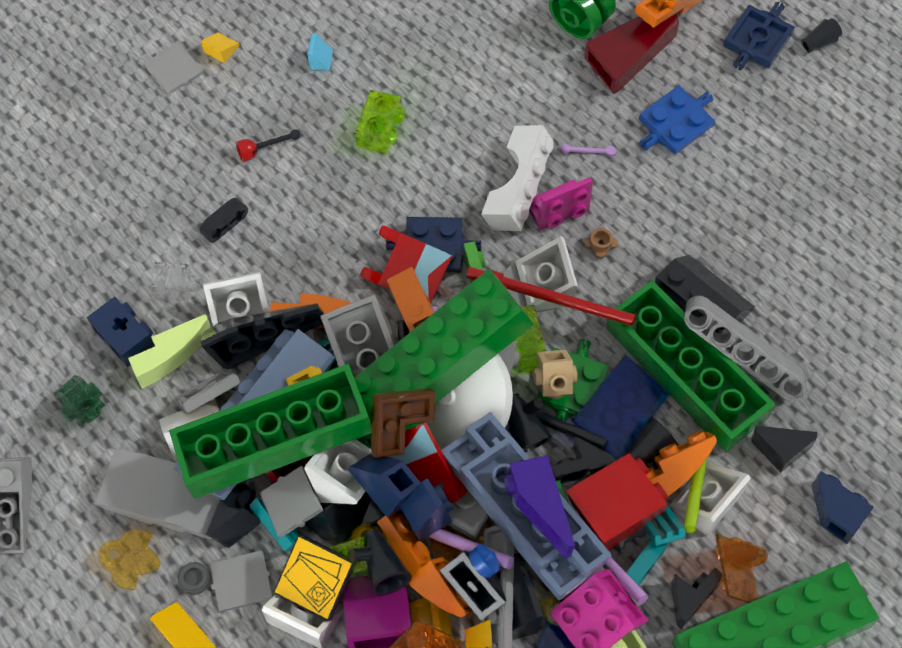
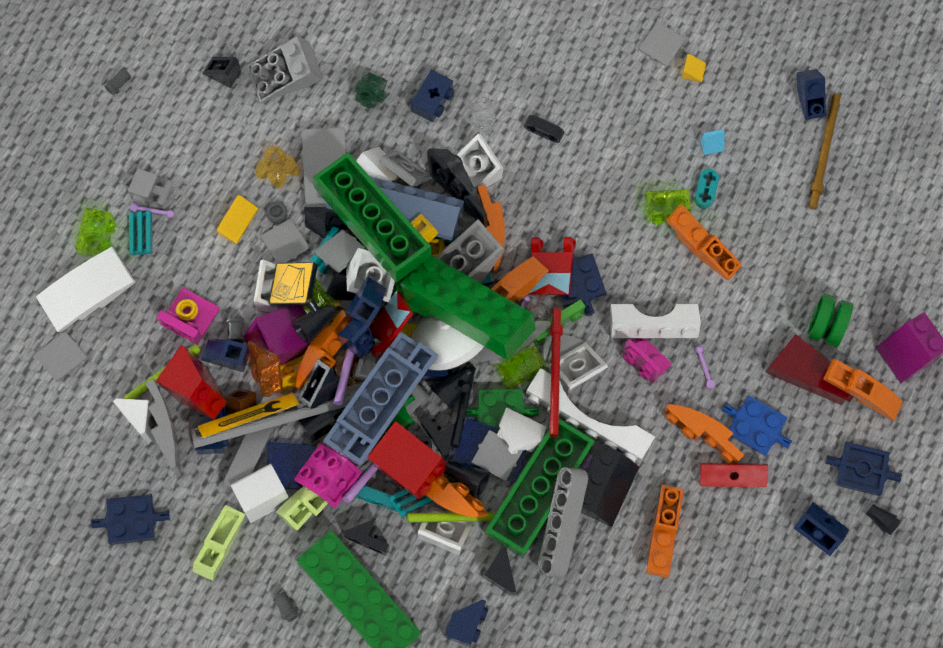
camera: 65 degrees right, 10 degrees up
(170, 351) = (428, 132): yellowish green slope -> none
(248, 149) = (610, 123): hinge -> none
(373, 78) = (711, 189): none -> teal beam
(391, 414) = (408, 289): reddish brown tile -> none
(442, 102) = (702, 244): none -> orange slope
(484, 561) = (331, 384): blue tile -> none
(540, 501) = (383, 401): dark purple slope -> none
(554, 373) = (493, 392): tan brick -> none
(603, 235) = (625, 393): medium nougat plate -> none
(612, 361) = (520, 431): none -> white slope
(631, 400) = (495, 456): none -> light grey piece
(658, 248) = (628, 440): none -> white arch
(661, 173) = (697, 424): none -> orange slope
(730, 159) = (747, 475): none -> red tile
(737, 565) = (394, 562): clear orange hinge -> none
(778, 252) = (664, 531): none -> orange slope
(820, 92) = (821, 529): none -> dark blue brick

